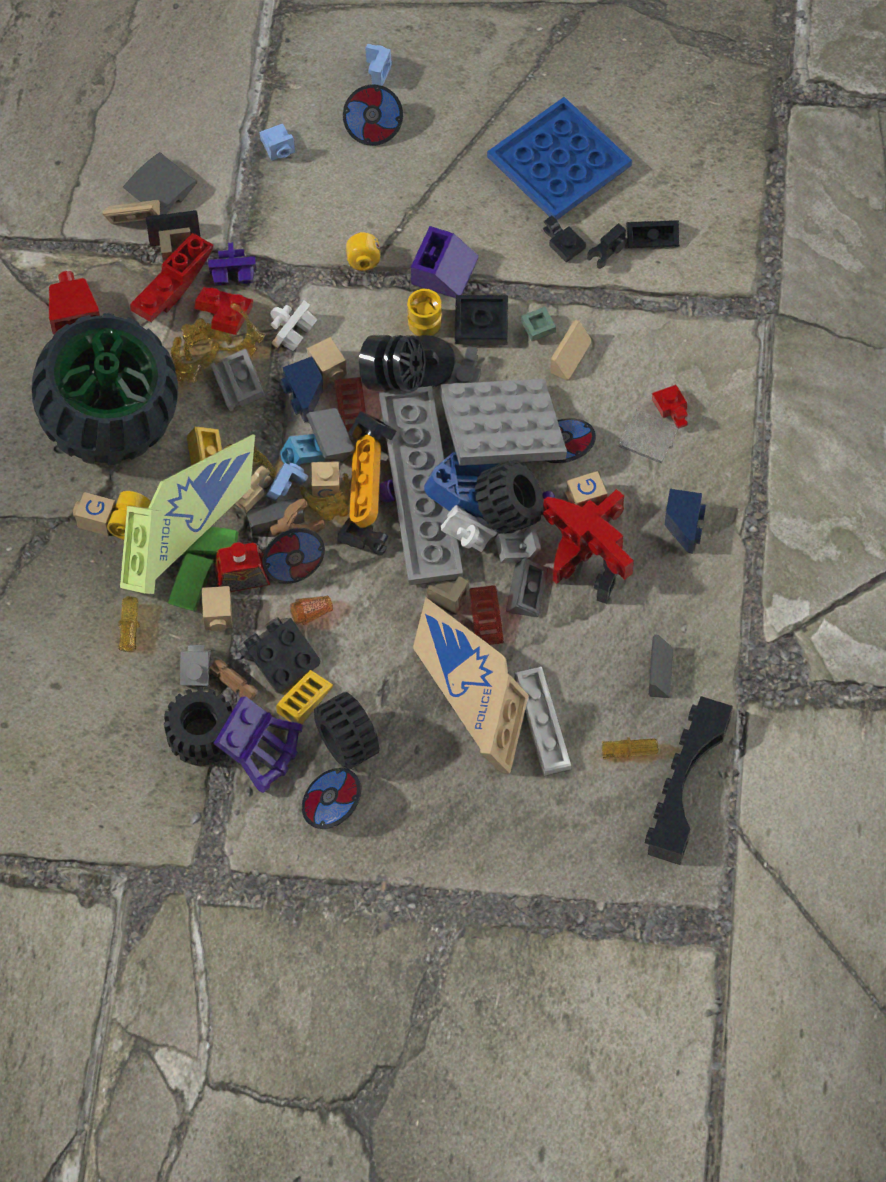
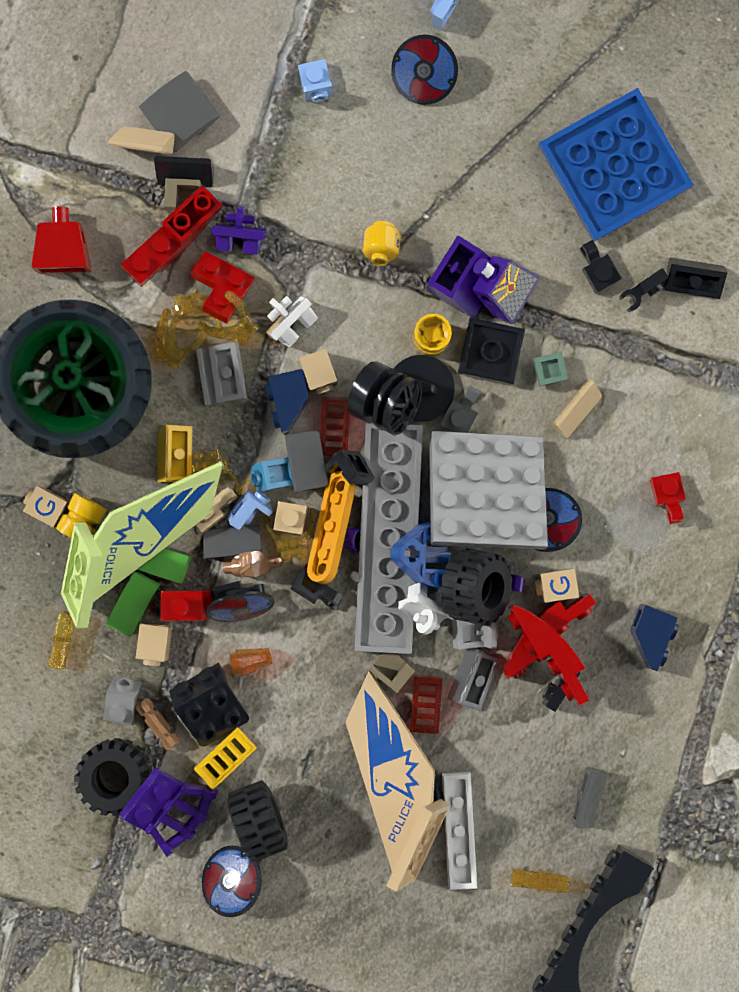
camera: 10 degrees right, 25 degrees up
(479, 262) = (503, 287): none -> torso

